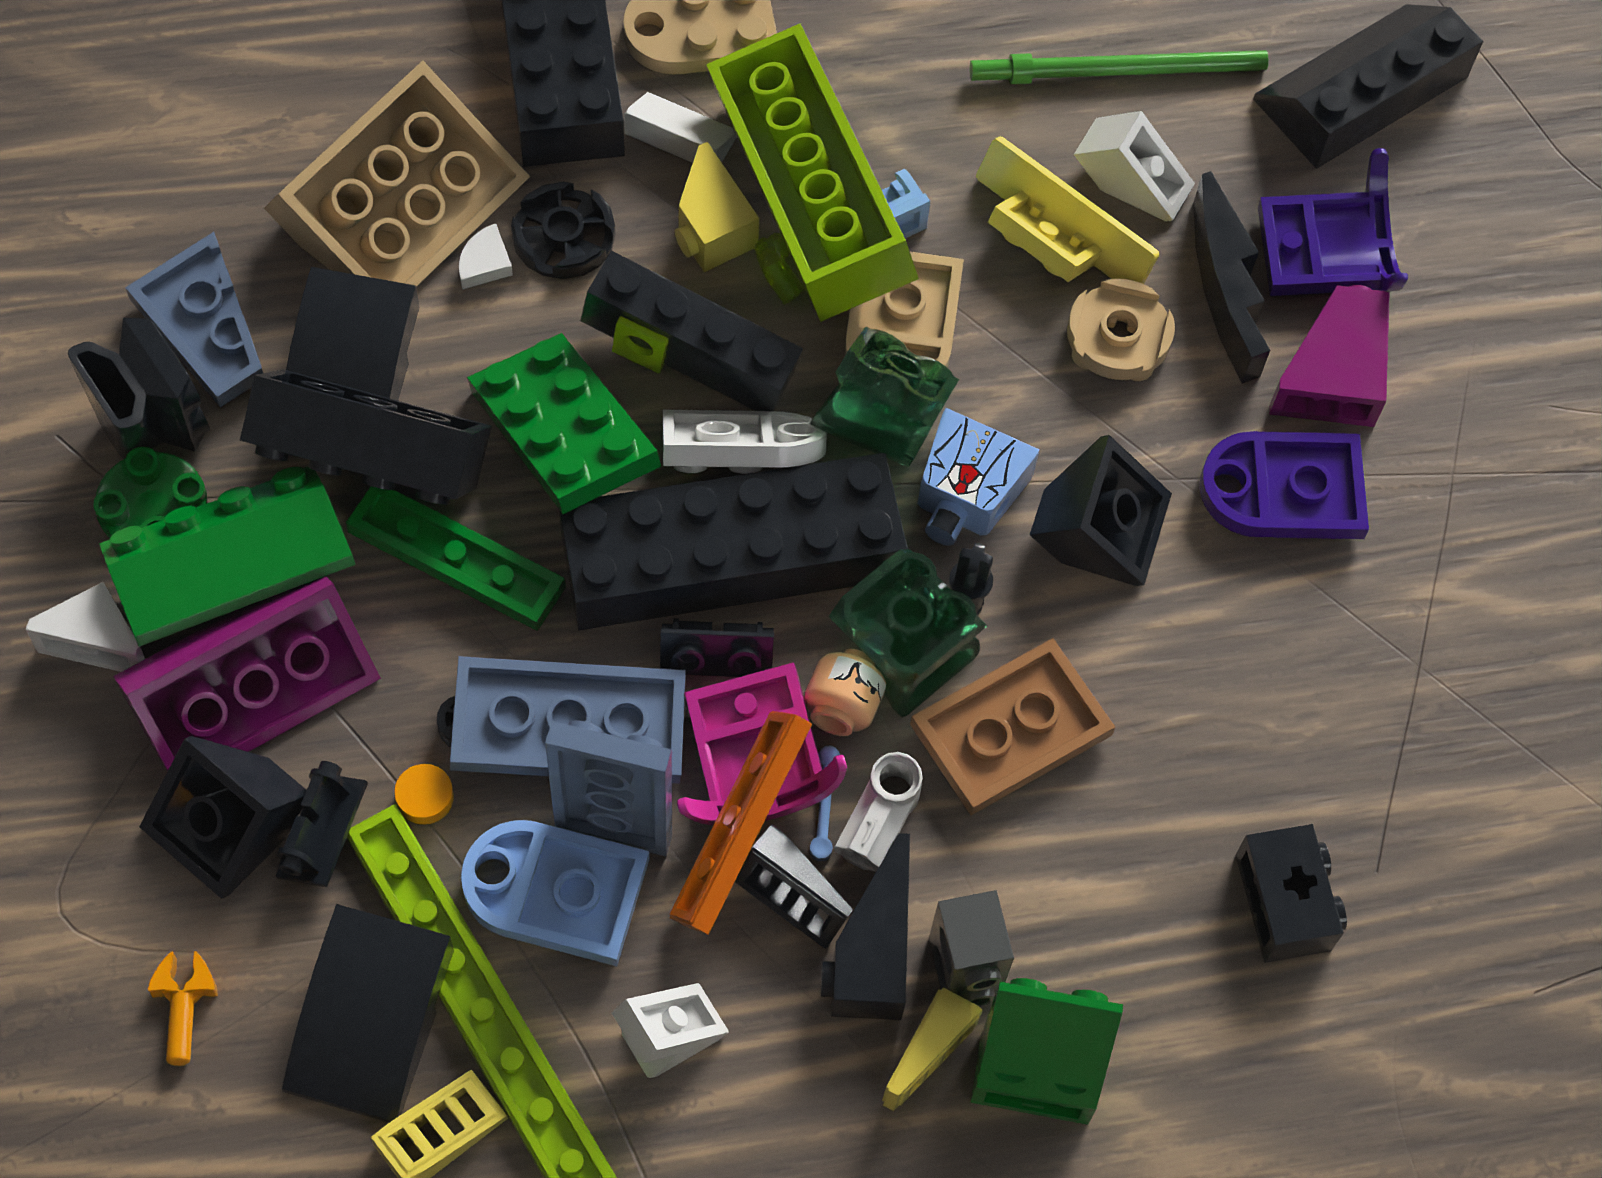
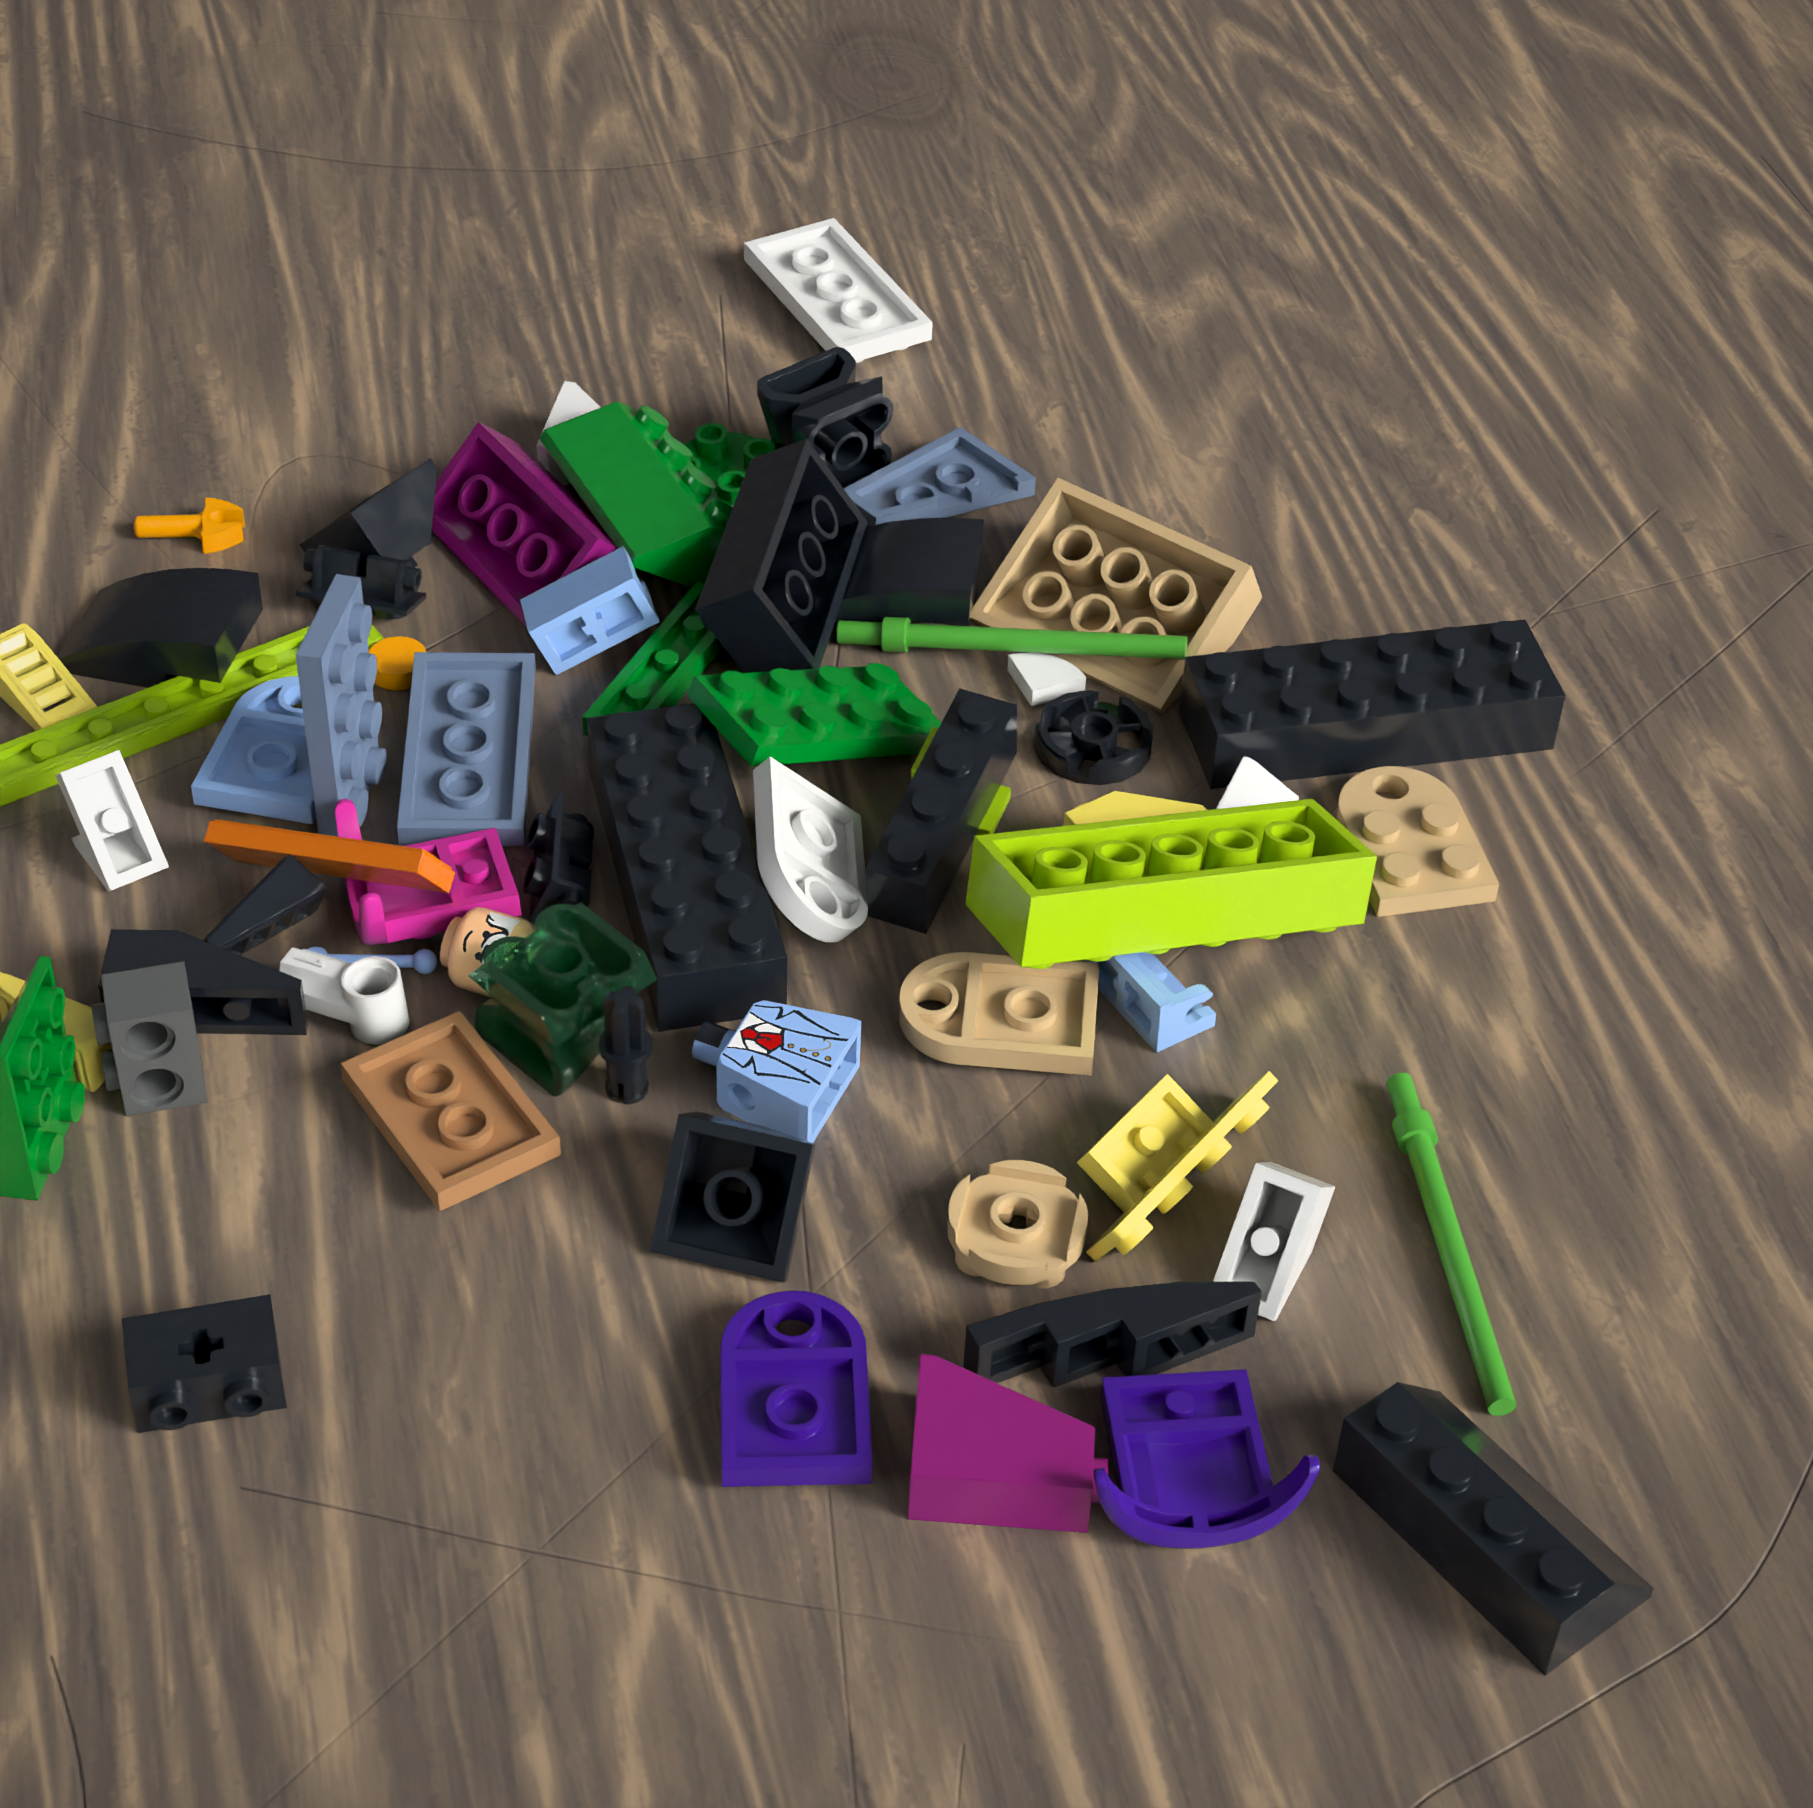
camera: 90 degrees right, 20 degrees down
(392, 610) = (588, 611): none -> light blue hinge
(422, 364) = (897, 635): none -> bright green bar
(885, 397) = (876, 959): clear green piece -> none

